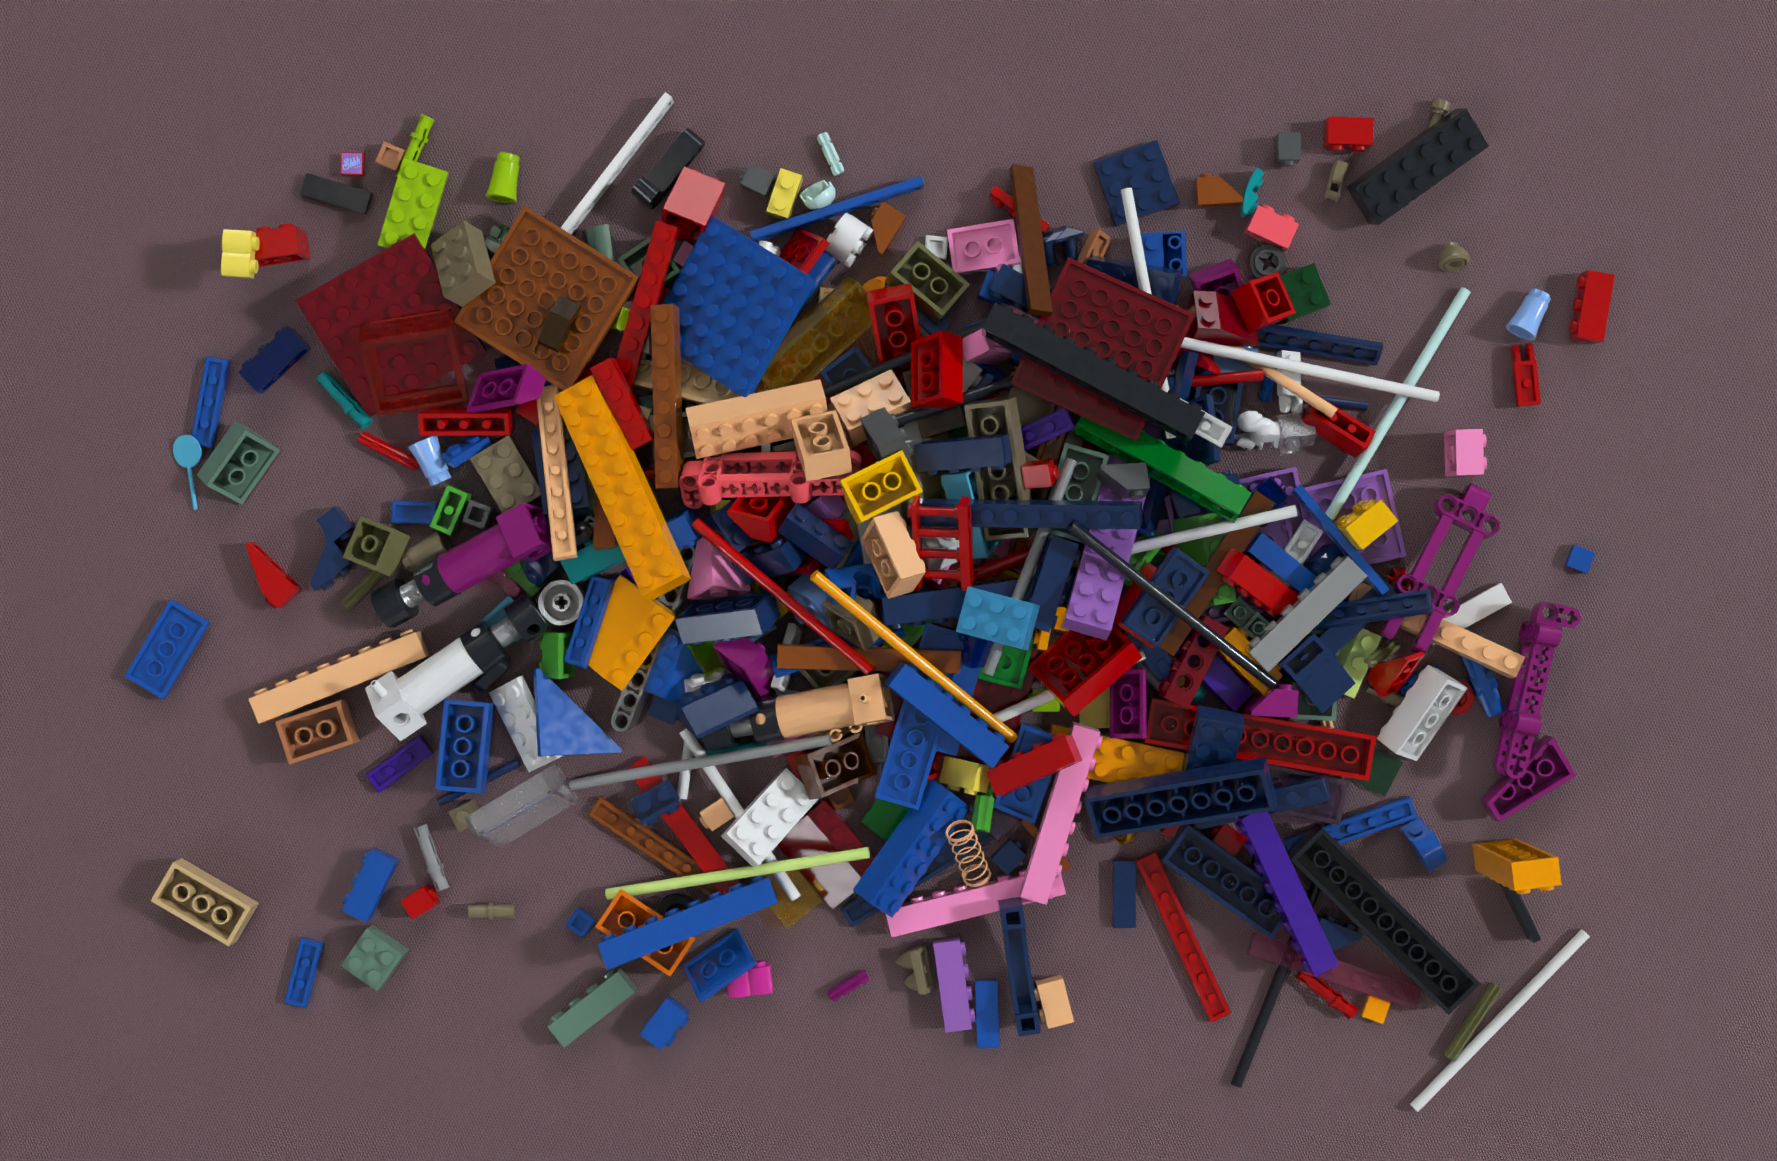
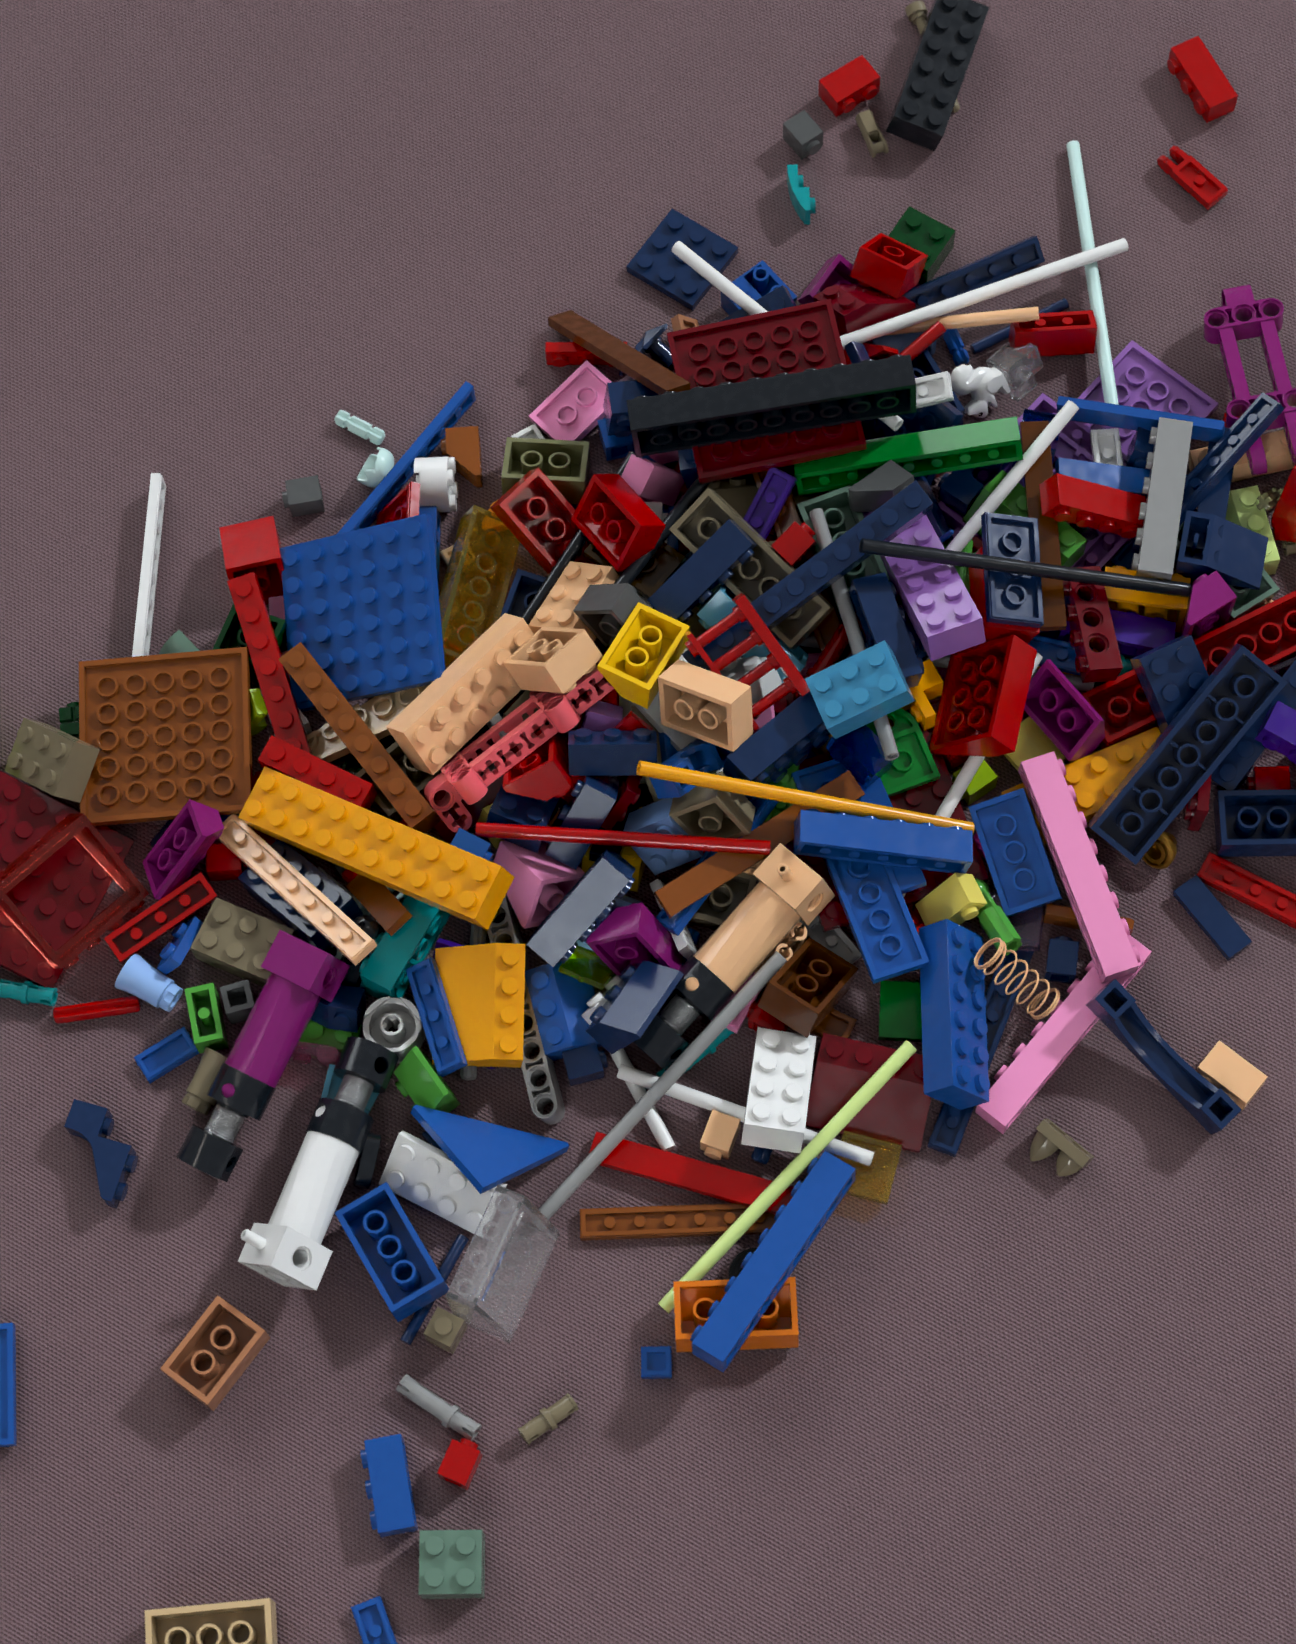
camera: 30 degrees left, 20 degrees down
(272, 579) = (62, 1229): red slope -> none
(338, 677) = (198, 1282): light nougat brick -> none
(361, 589) = (164, 1162): olive axle -> none
(376, 546) = (149, 1107): olive brick -> none
(399, 763) = (331, 1331): dark purple tile -> none
(504, 179) = (41, 665): lime plant -> none
(557, 324) = (194, 743): dark brown slope -> none
(592, 1007) = (737, 1443): sand green brick -> none
(656, 802) = (645, 1166): dark blue bracket -> none
(664, 1022) = (831, 1402): blue brick -> none
(666, 172) = (202, 565): black beam -> none
(719, 965) = (843, 1292): blue tile -> none
(753, 982) = (888, 1287): dark pink brick -> none
(784, 195) = (340, 488): light yellow brick -> none
(848, 985) = (1000, 1219): magenta axle -> none
(953, 985) = (1109, 1134): medium lavender brick -> none
(987, 1013) = (1171, 1143): blue tile -> none
(1034, 765) = (1012, 830): red brick -> none
(1214, 192) = (765, 216): dark orange slope -> none
(1246, 618) = (1110, 555): sand green slope -> none
(1263, 252) = (855, 237): dark grey gear -> none
(1271, 227) = (844, 210): coral brick -> none
(1286, 398) = (982, 337): white hinge -> none
(1366, 522) = (1152, 377): yellow brick -> none
(1453, 257) = (1038, 123): dark tan brick -> none
(1464, 452) = (1193, 273): bright pink brick -> none
(1529, 315) = (1151, 126): light blue plant -> none

